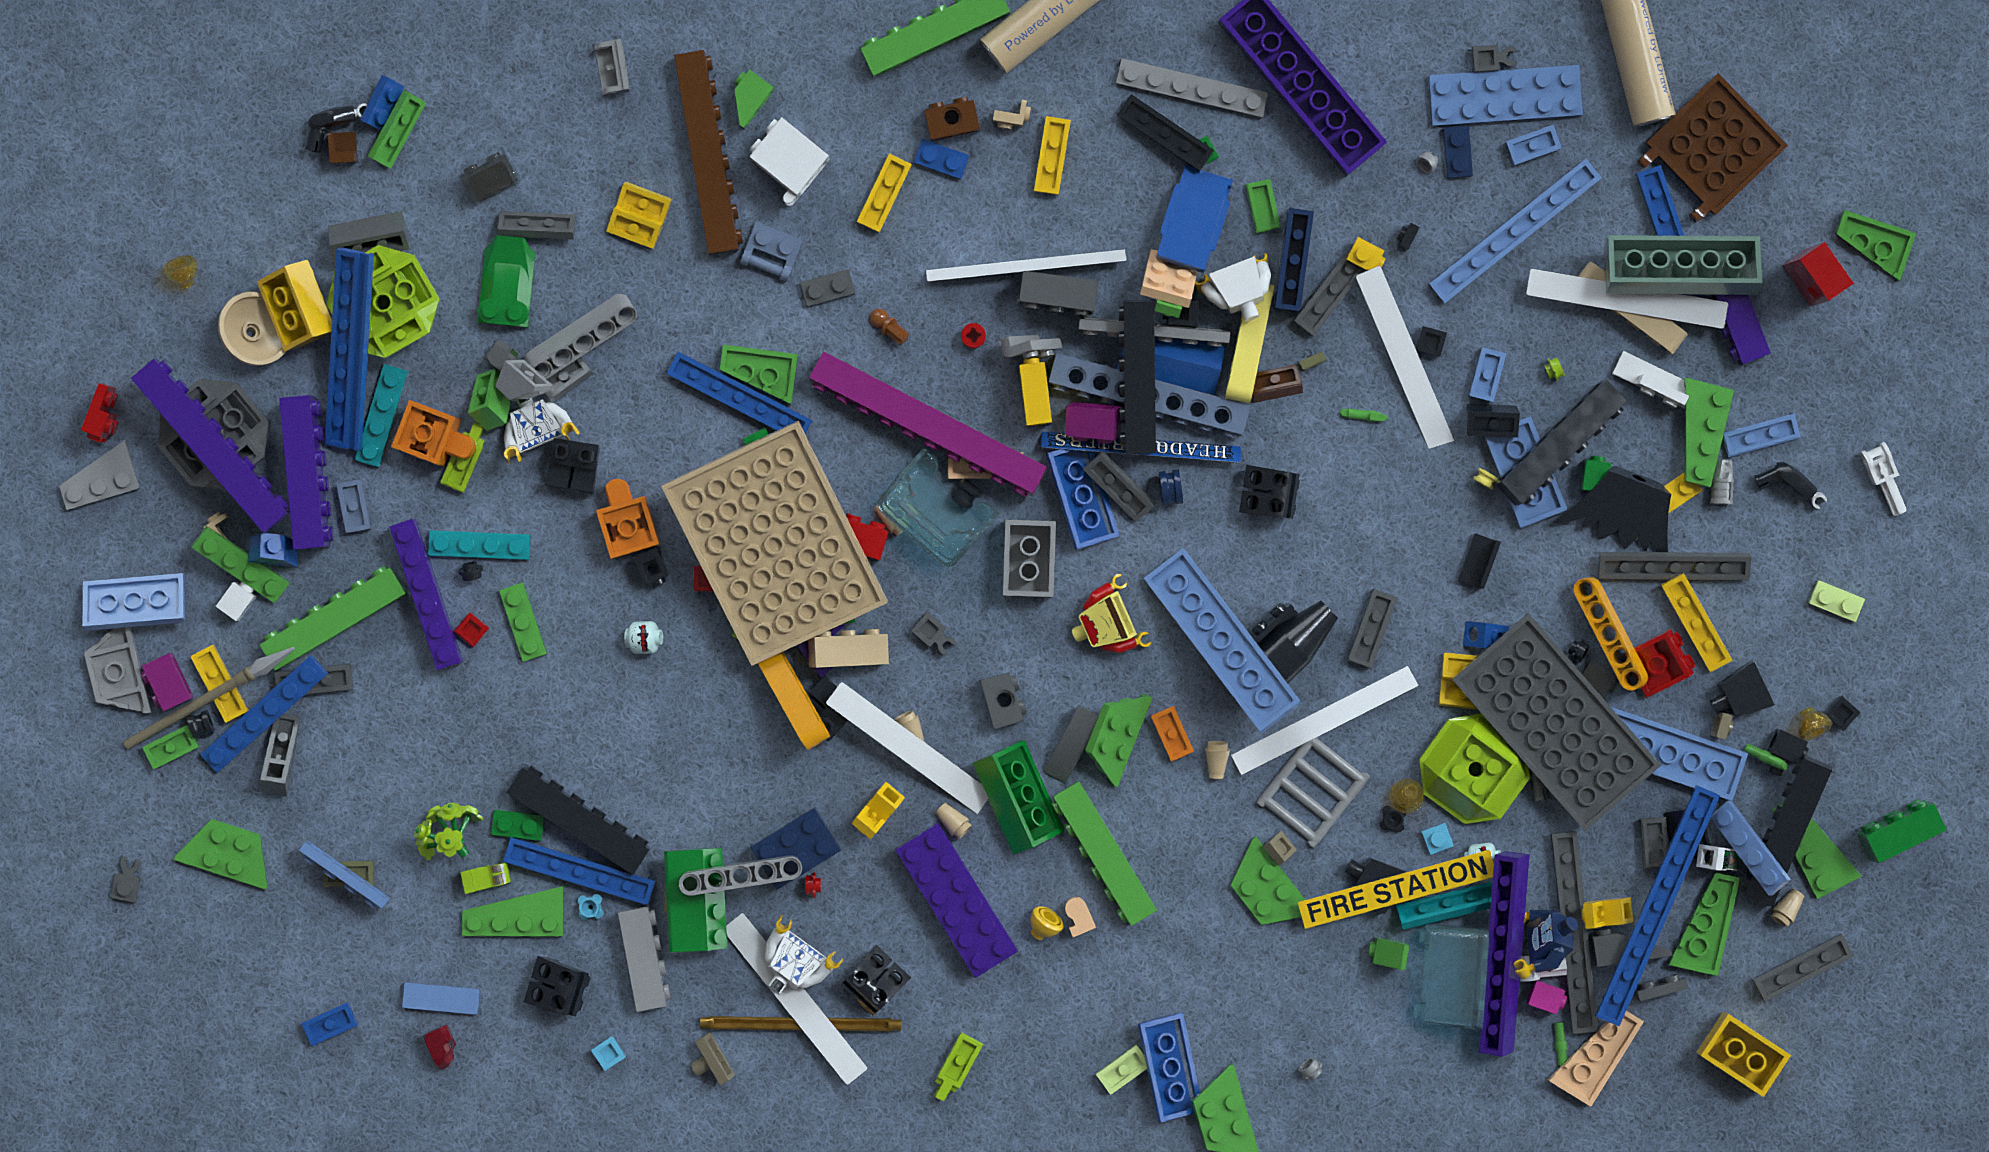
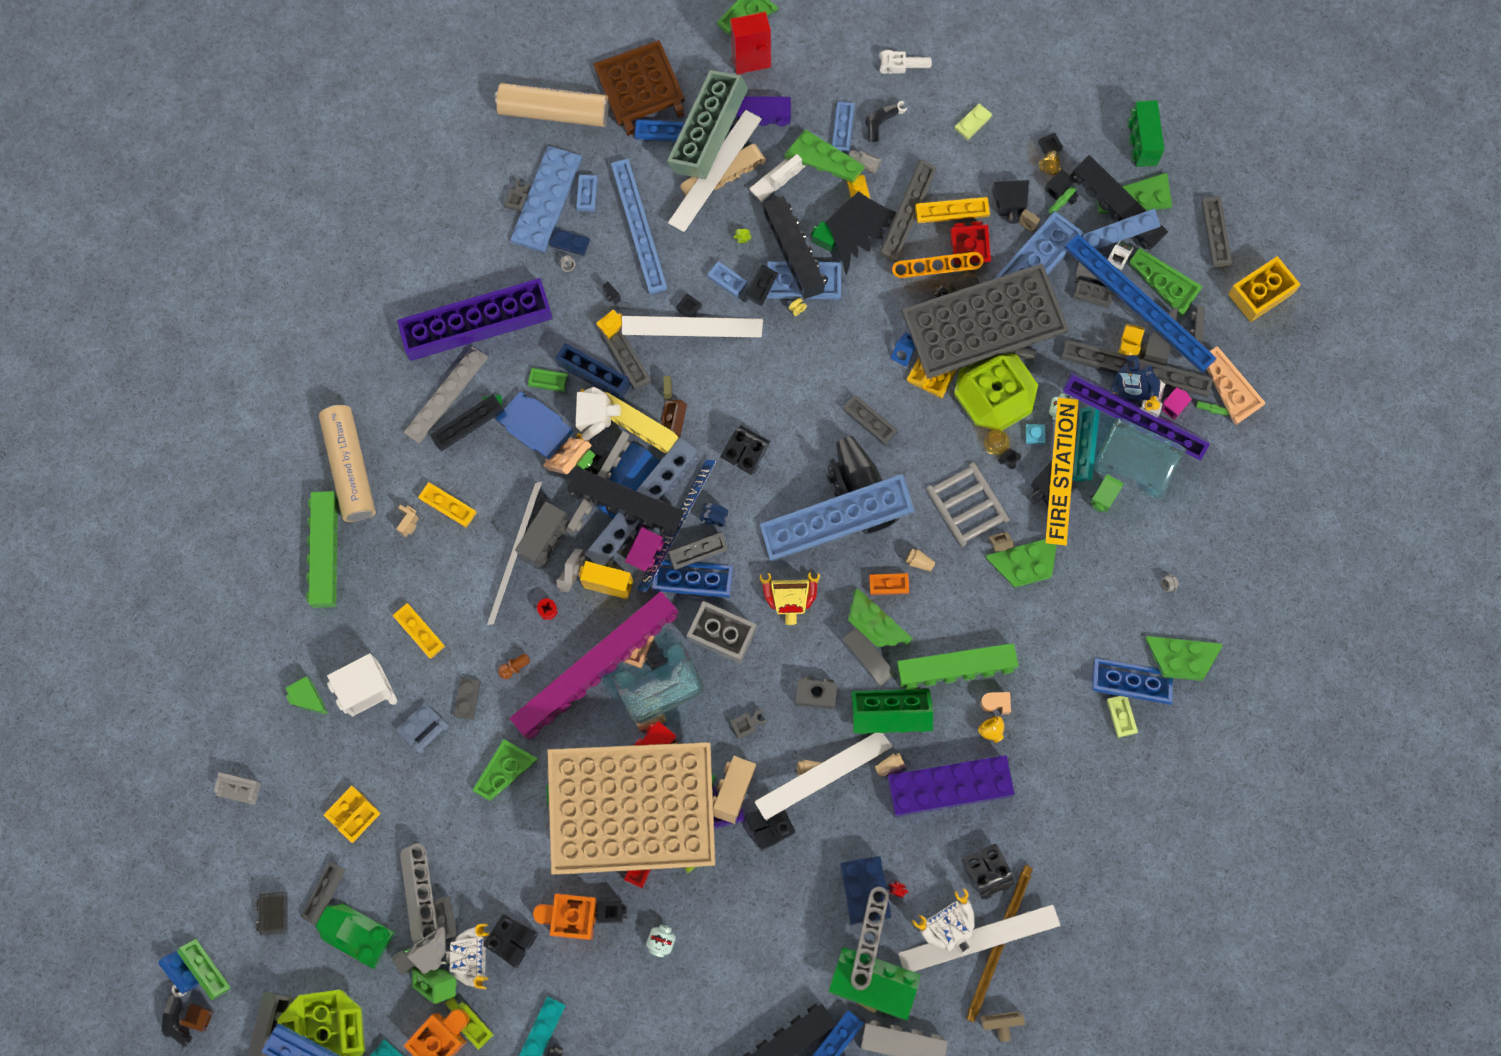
camera: 65 degrees left, 15 degrees down
(523, 622) = (610, 1030): bright green plate -> none
(706, 152) = (329, 744): reddish brown brick -> none
(734, 394) = (508, 800): blue plate -> none
(794, 700) = (754, 843): light orange beam -> none
(878, 810) = (861, 816): yellow brick -> none
(941, 159) = (414, 582): blue plate -> none
(957, 1065) = (1075, 837): lime hinge -> none
(966, 124) = (392, 573): reddish brown brick -> none
(1324, 720) = (921, 478): white sticker -> none
(1369, 416) = (720, 369): bright green piece -> none
(1479, 561) = (853, 331): black panel -> none
(1787, 908) = (1174, 228): tan cone -> none

